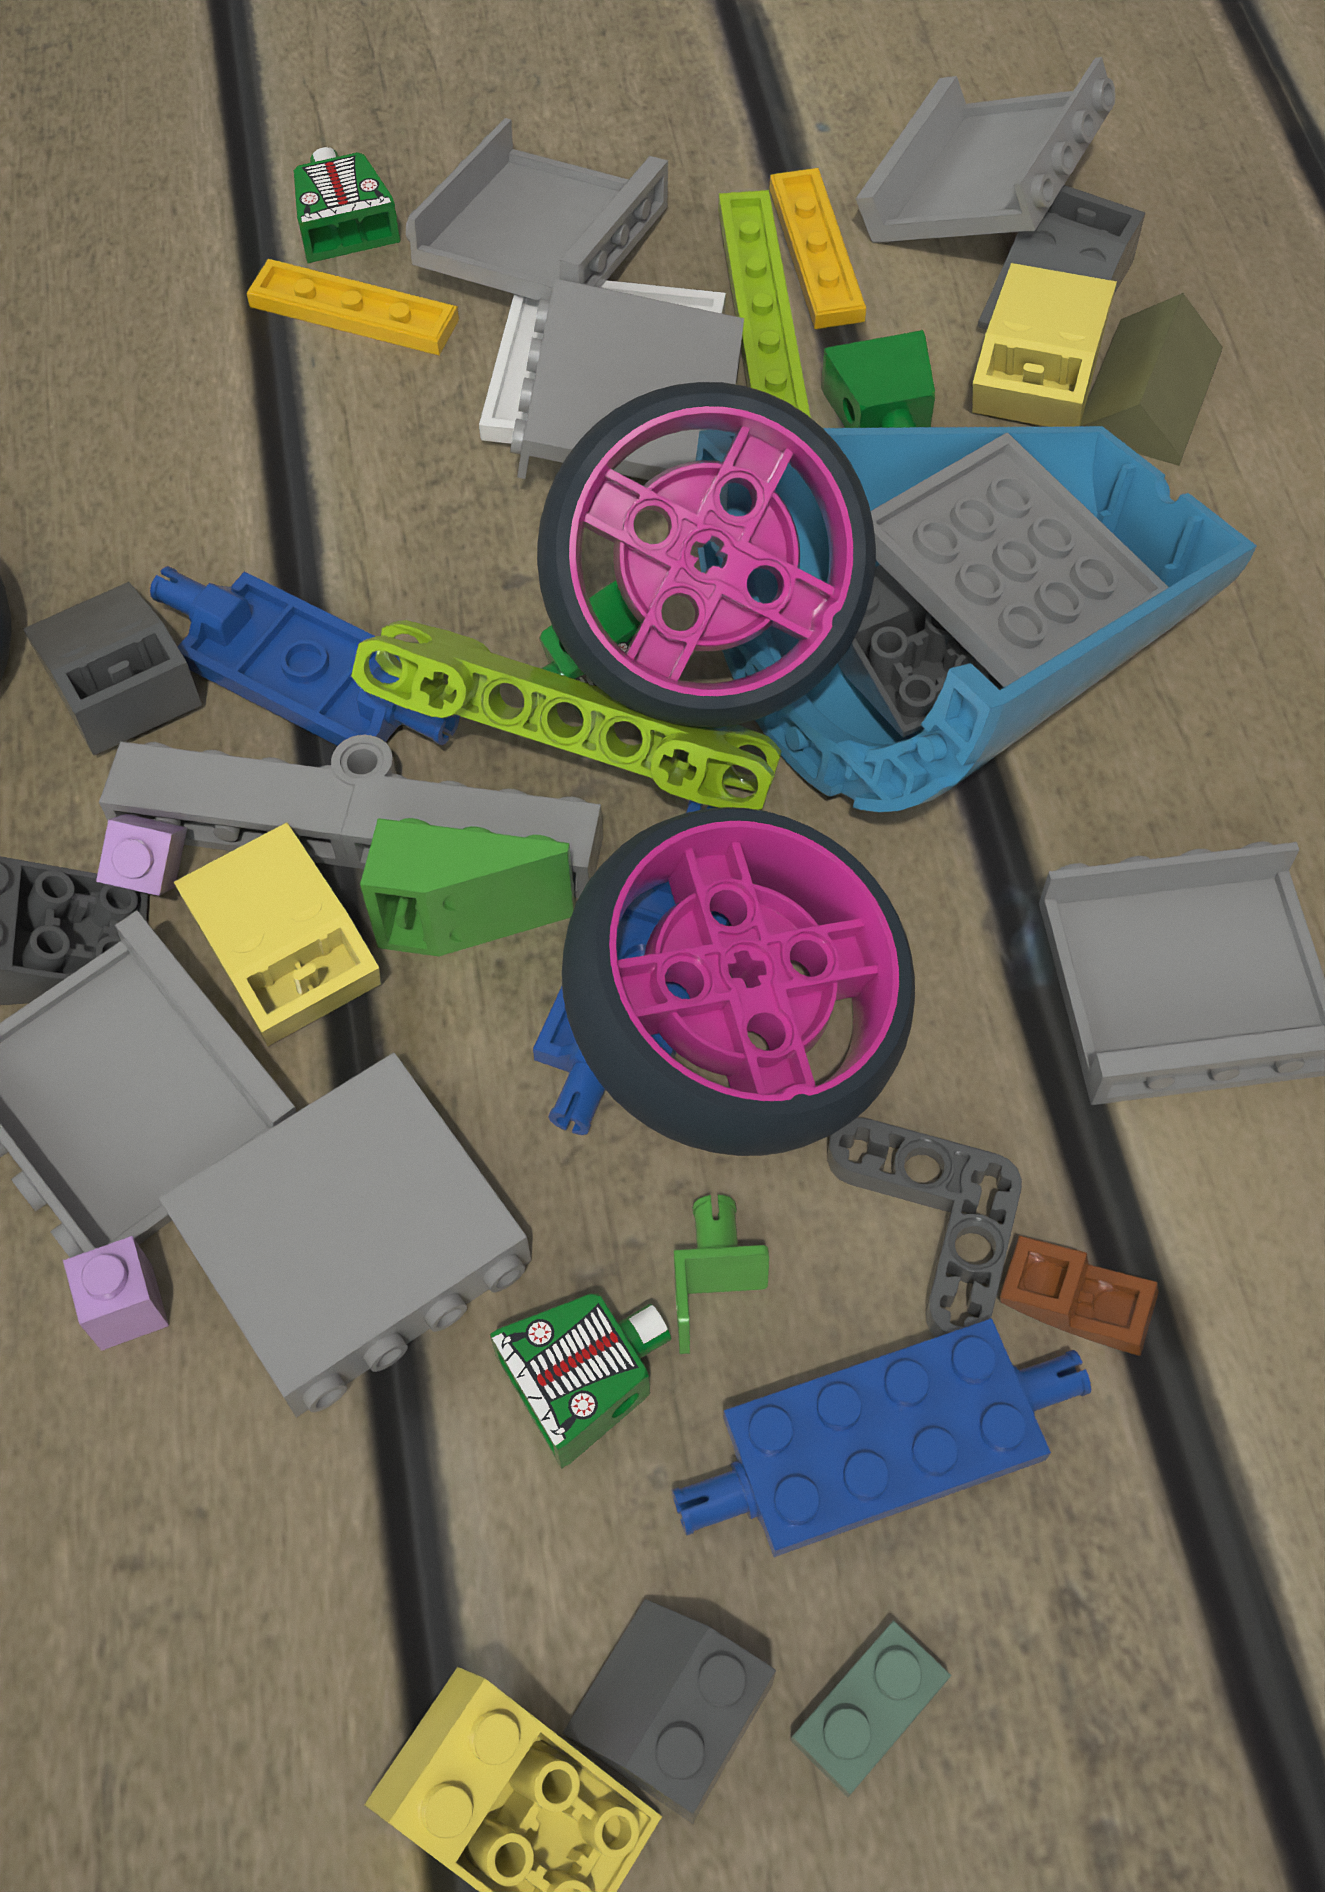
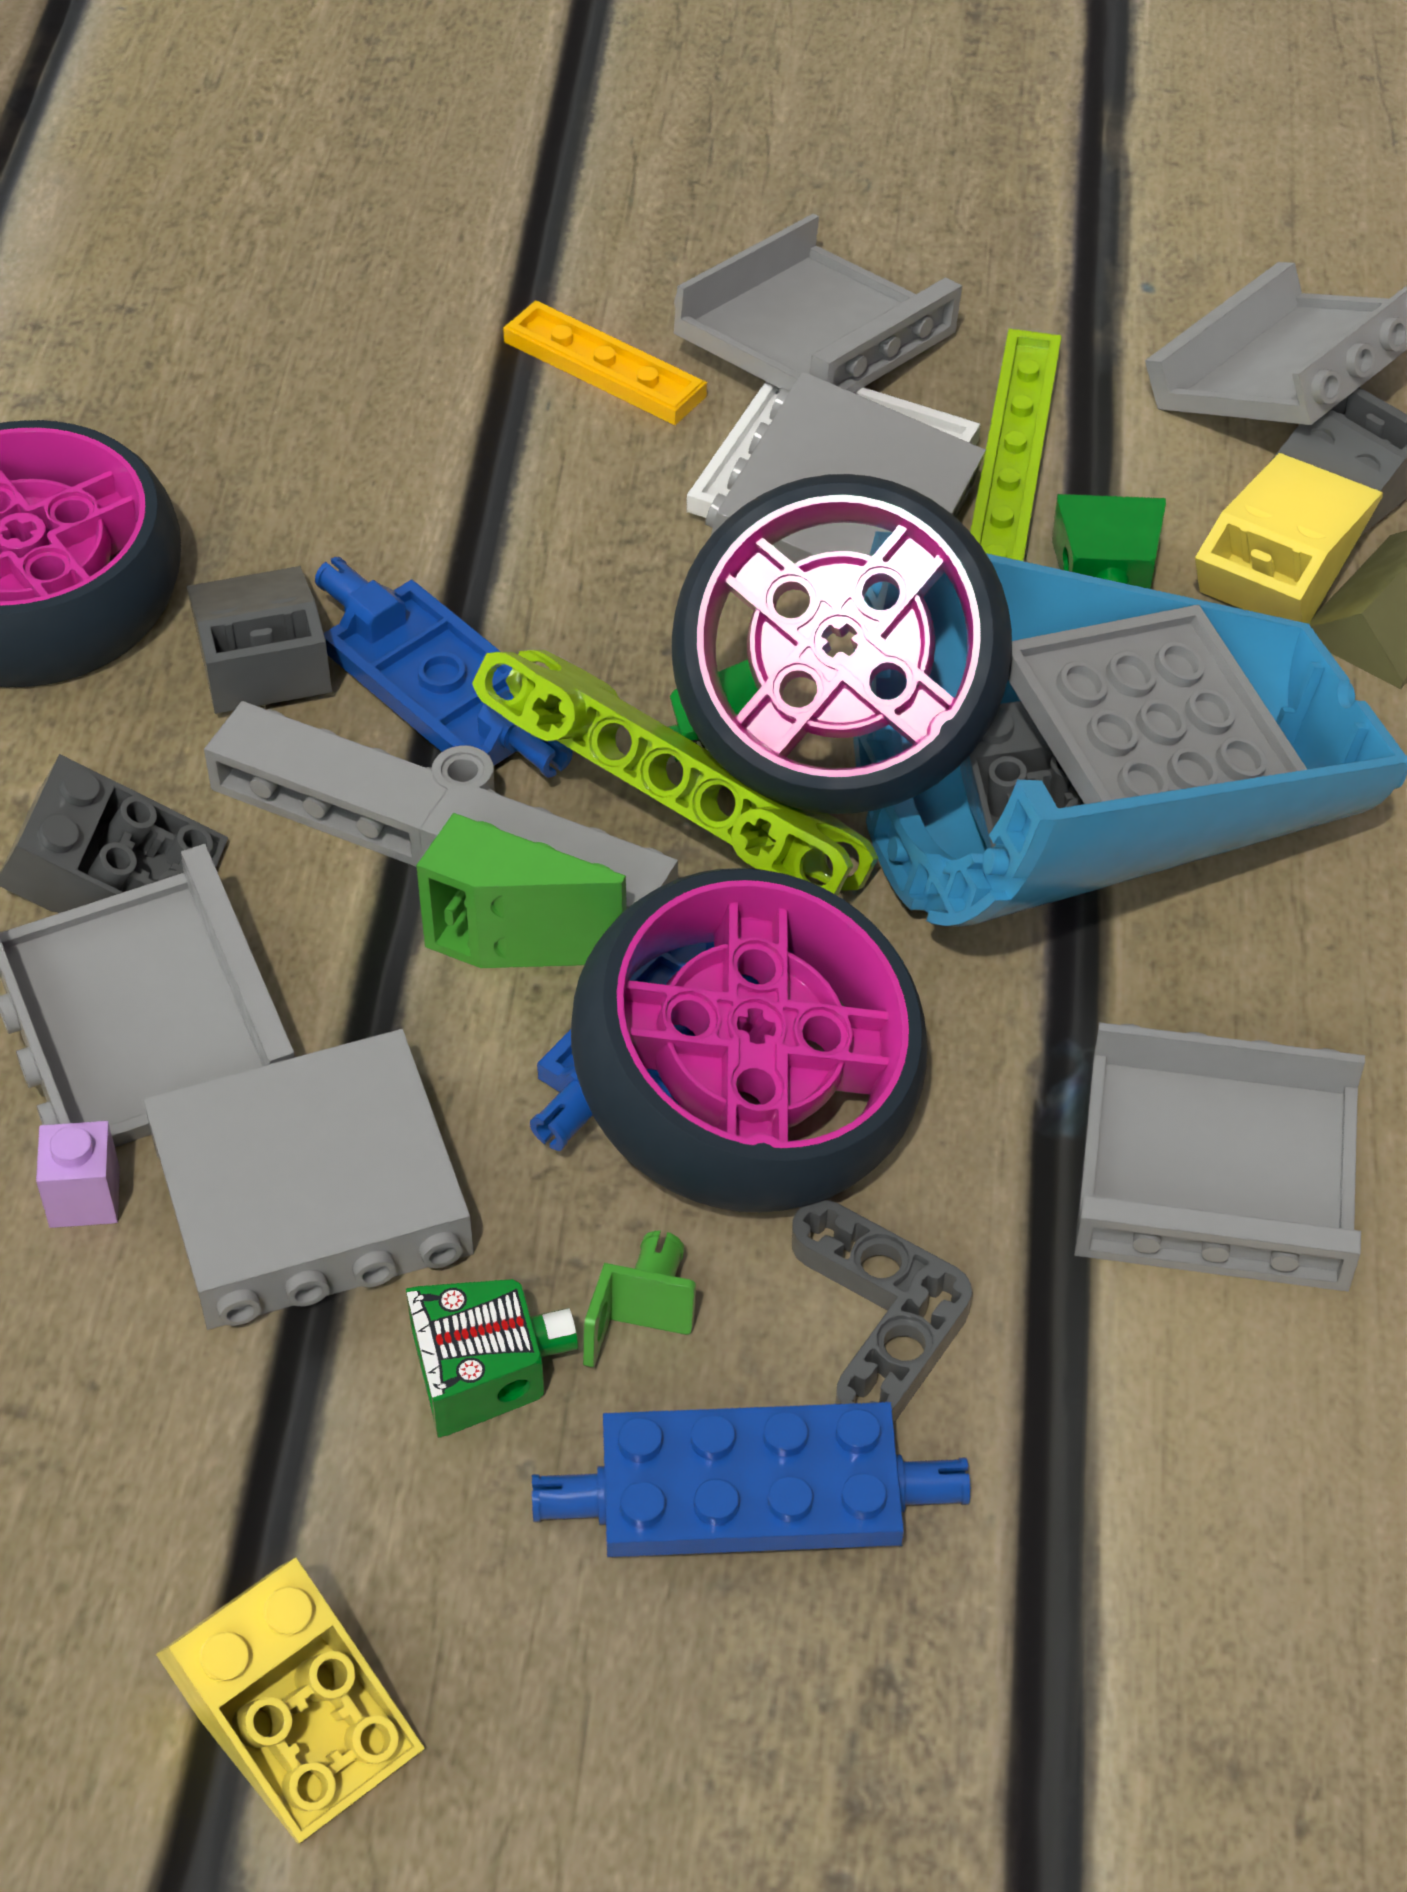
camera: 15 degrees right, 10 degrees down
(141, 854) = (228, 804): lavender brick -> none
(279, 933) = (333, 905): light yellow slope -> none
(342, 206) = (623, 265): green torso -> none
(671, 1706) = (470, 1658): dark grey slope -> none
(817, 248) = (1095, 402): yellow tile -> none
(870, 1708) = (653, 1712): sand green plate -> none
(1079, 1298) = (984, 1413): dark orange slope -> none

